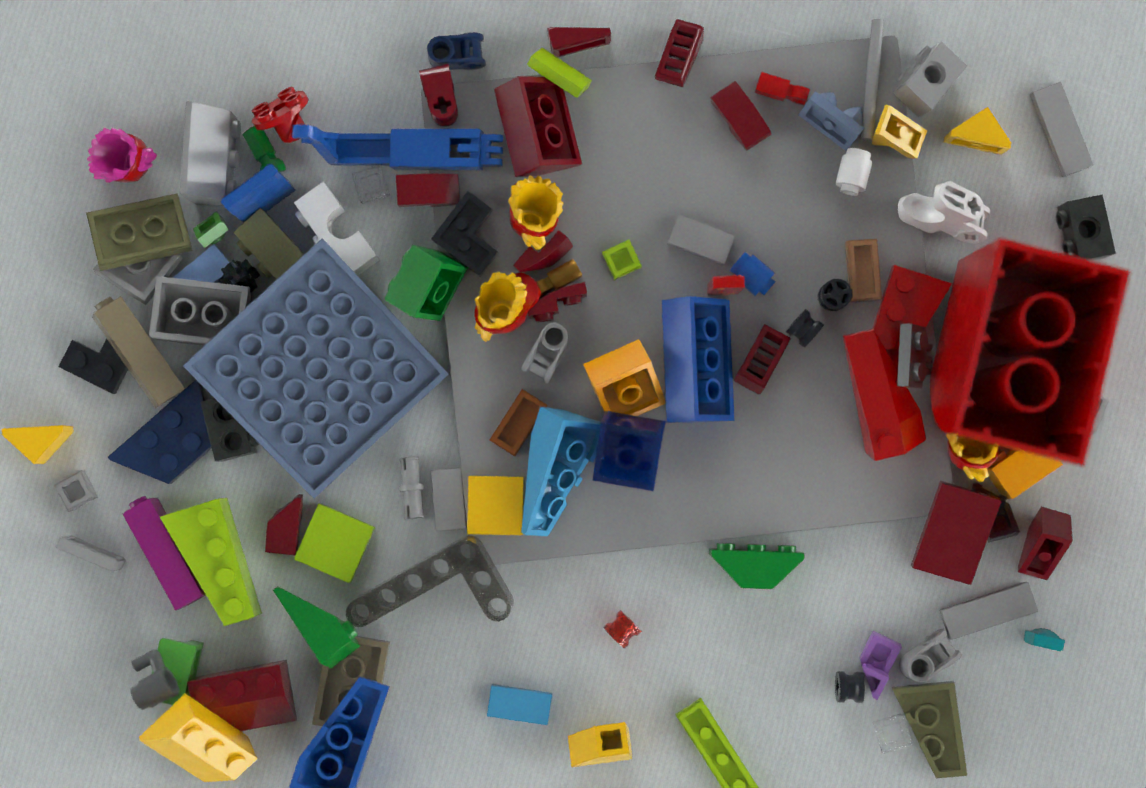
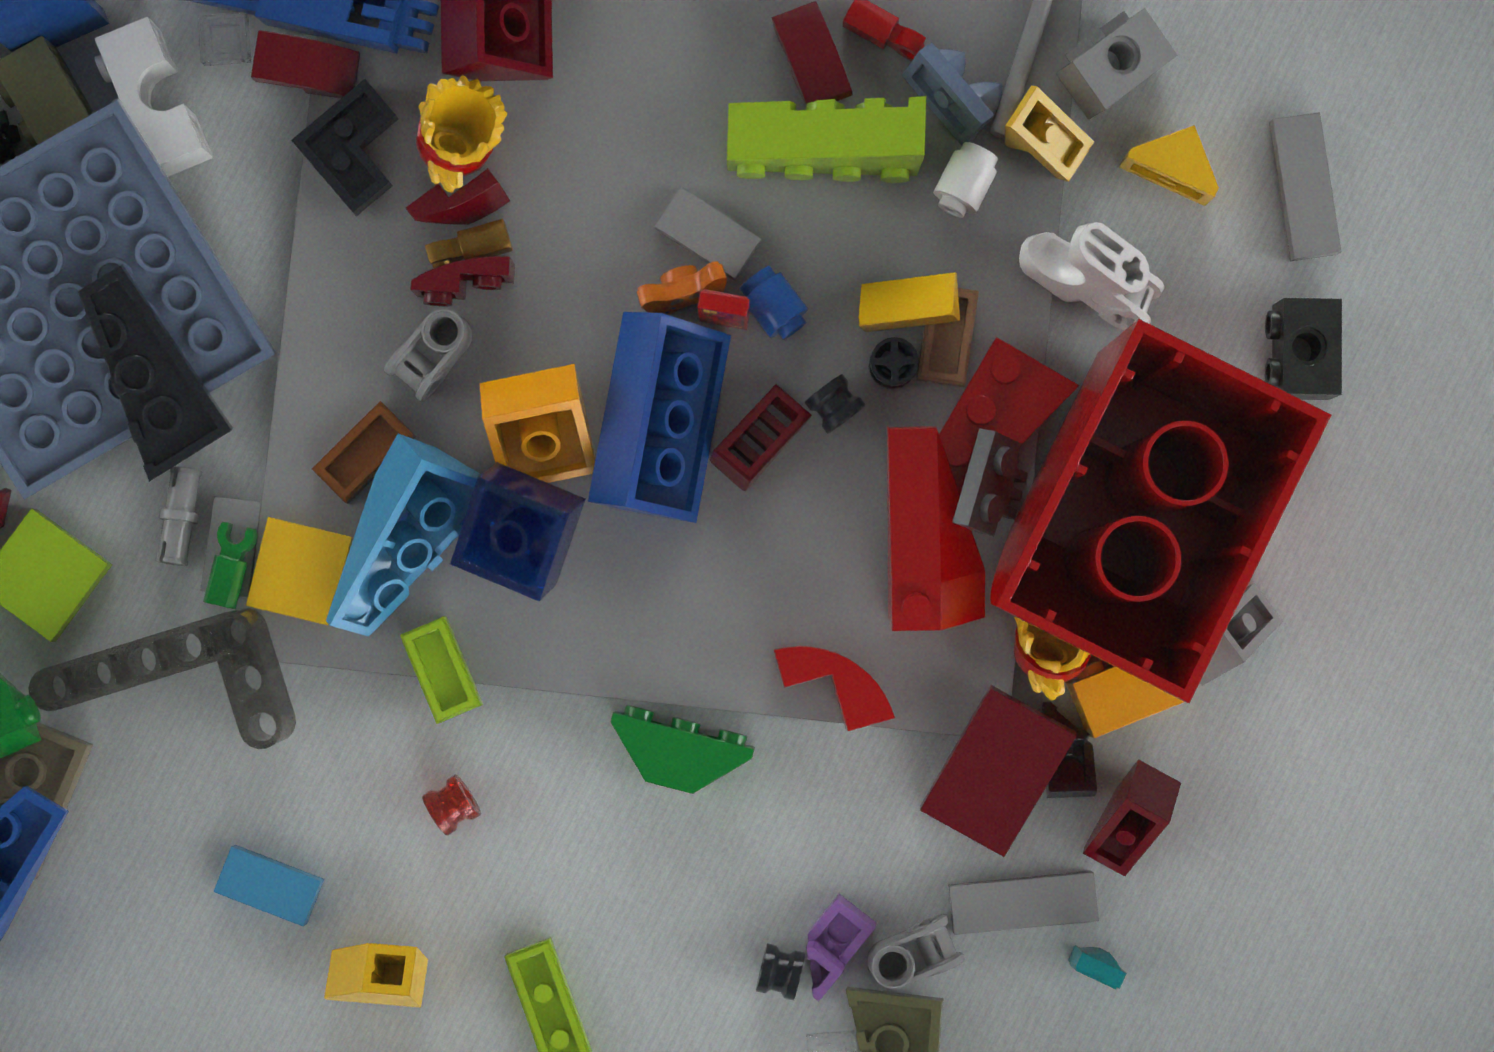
camera: 15 degrees right, 0 degrees up
(381, 408) = (158, 388): none -> black wing
(425, 283) = (265, 205): green brick -> none
(451, 514) = (229, 567): none -> green bar
(504, 303) = (379, 263): yellow hair -> none
(597, 547) = (441, 669): none -> lime tile
(621, 259) = (579, 237): lime tile -> none
(695, 276) = (681, 287): none -> orange piece
(764, 165) = (827, 139): none -> lime wedge
(836, 255) = (909, 302): none -> yellow slope
(858, 503) = (857, 693): none -> red brick

